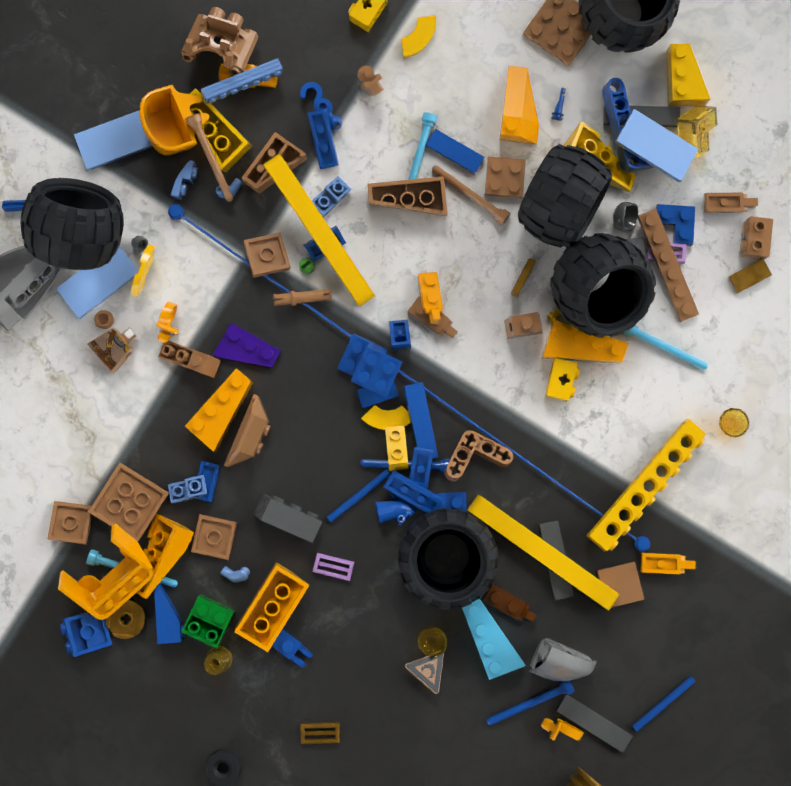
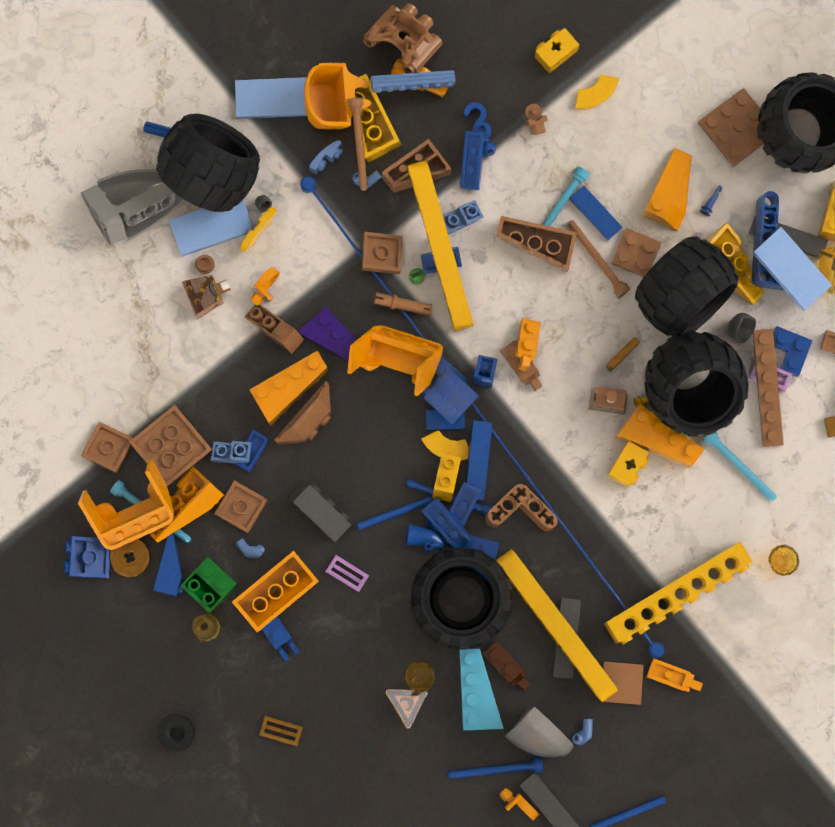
camera: 15 degrees right, 5 degrees down
(313, 344) = (396, 351): none -> light orange windscreen
(601, 643) = (585, 734): none -> medium blue arm

